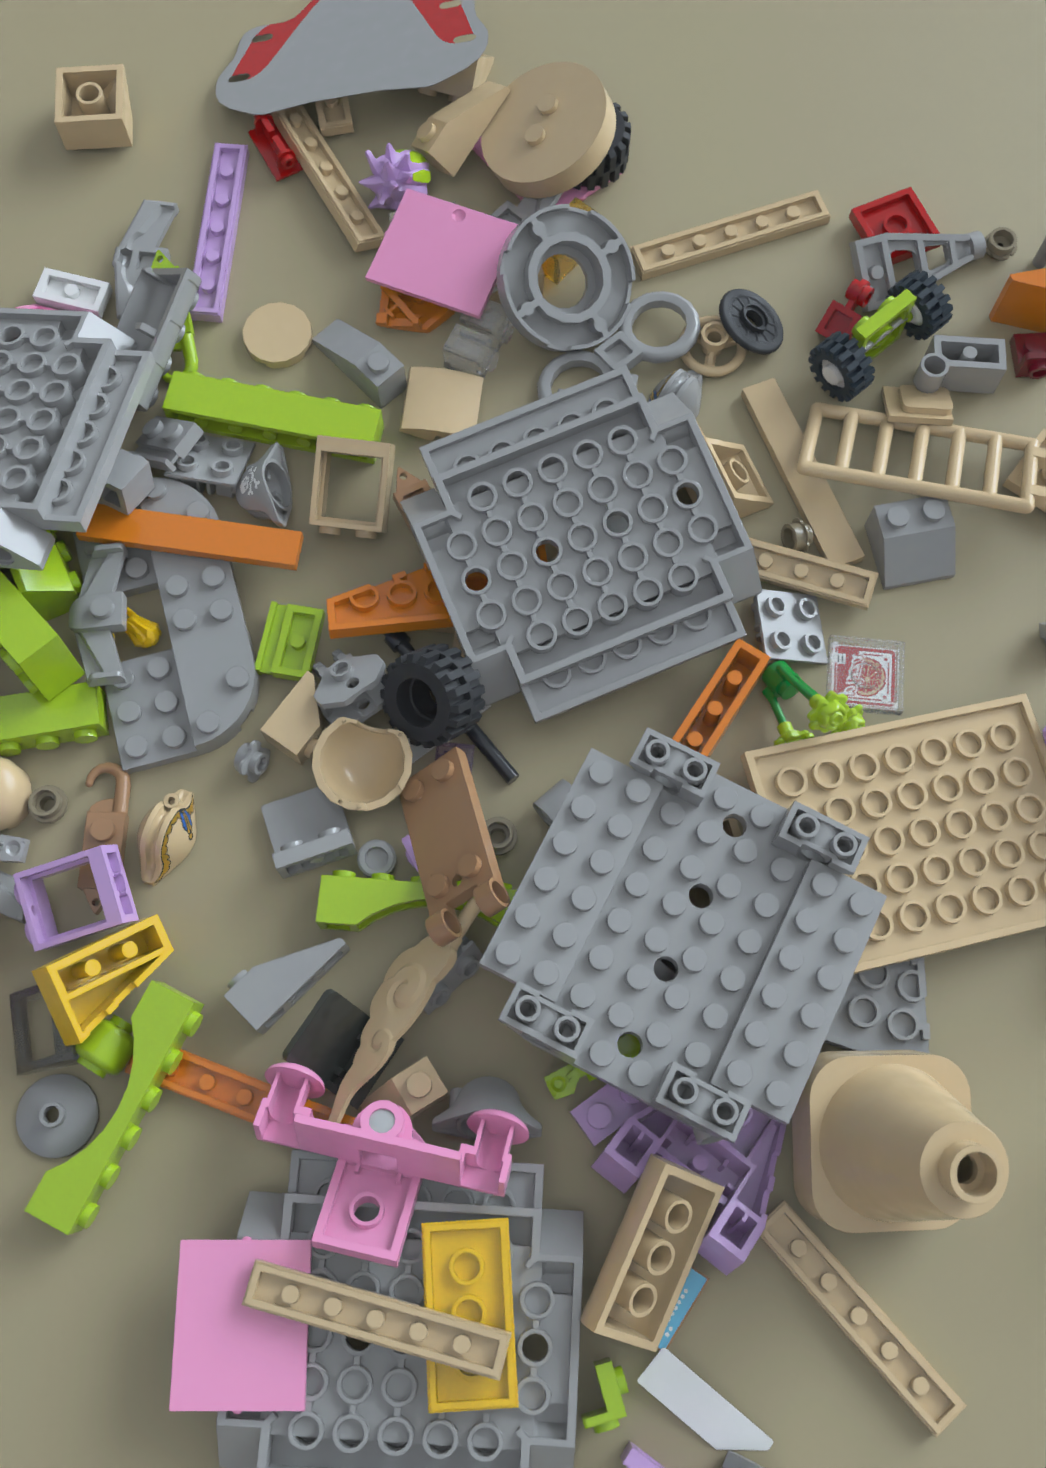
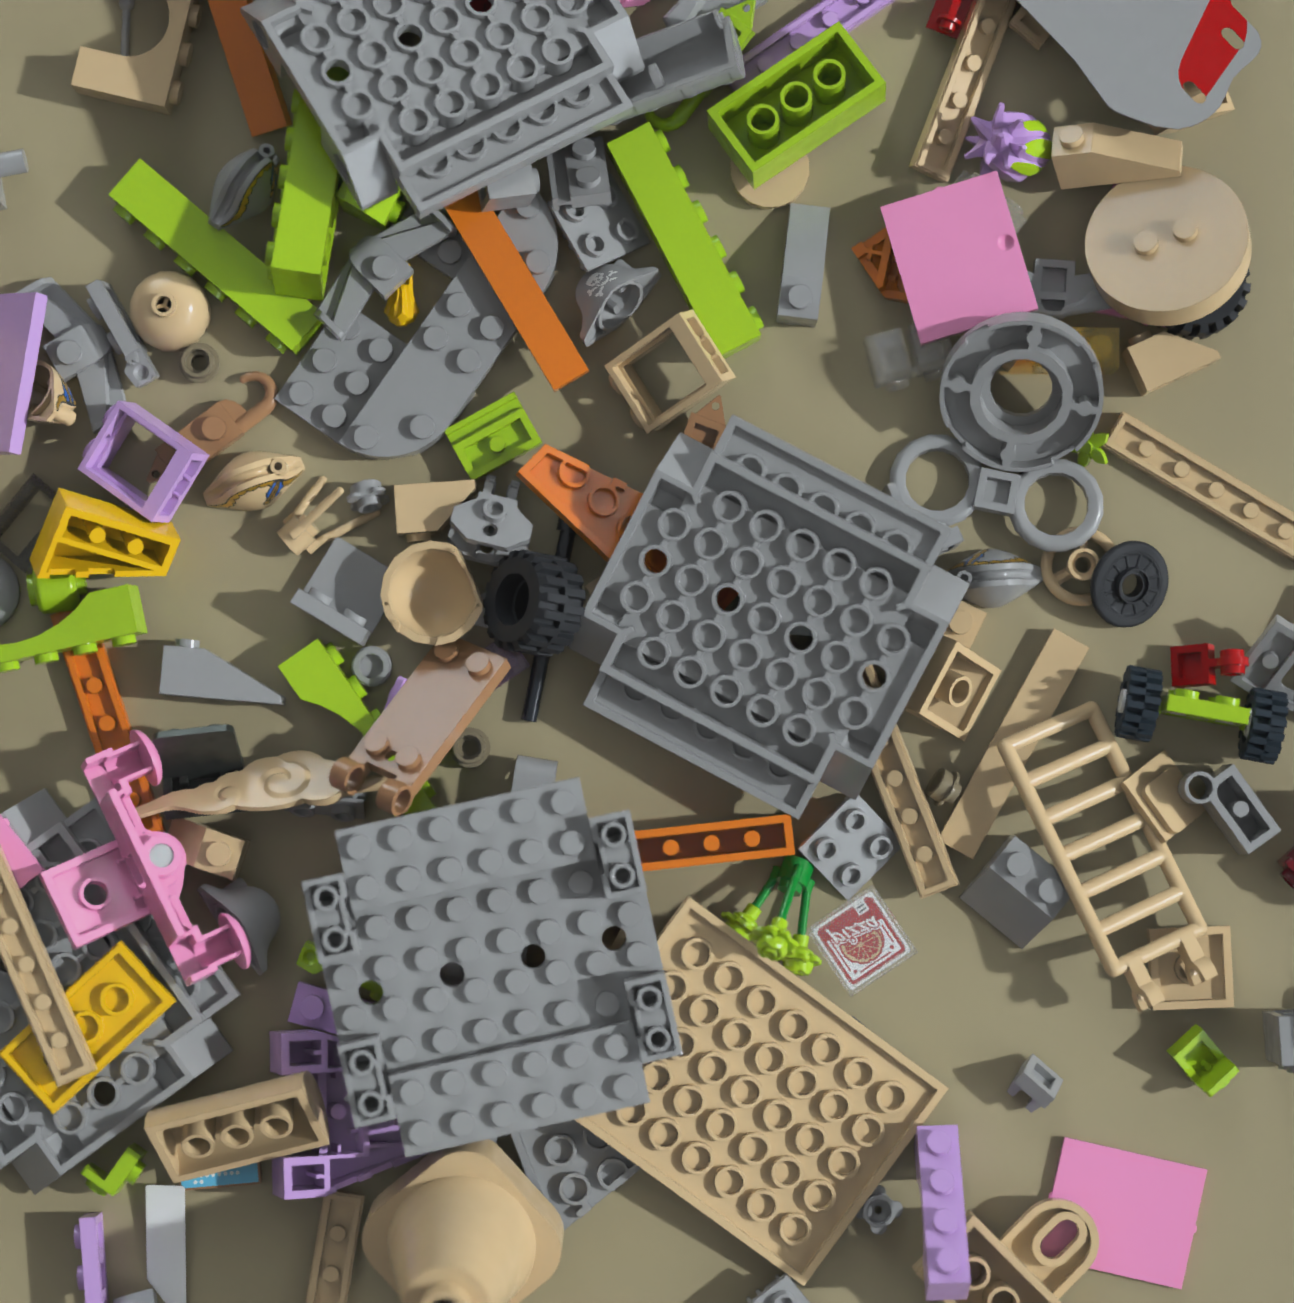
camera: 50 degrees right, 15 degrees up
(232, 828) = (300, 530): none -> tan plant
(251, 277) = (796, 105): none -> lime brick
(440, 402) = (818, 375): tan slope -> none
(620, 194) = (1164, 359): none -> tan slope
(641, 281) = (1092, 451): none -> lime plant

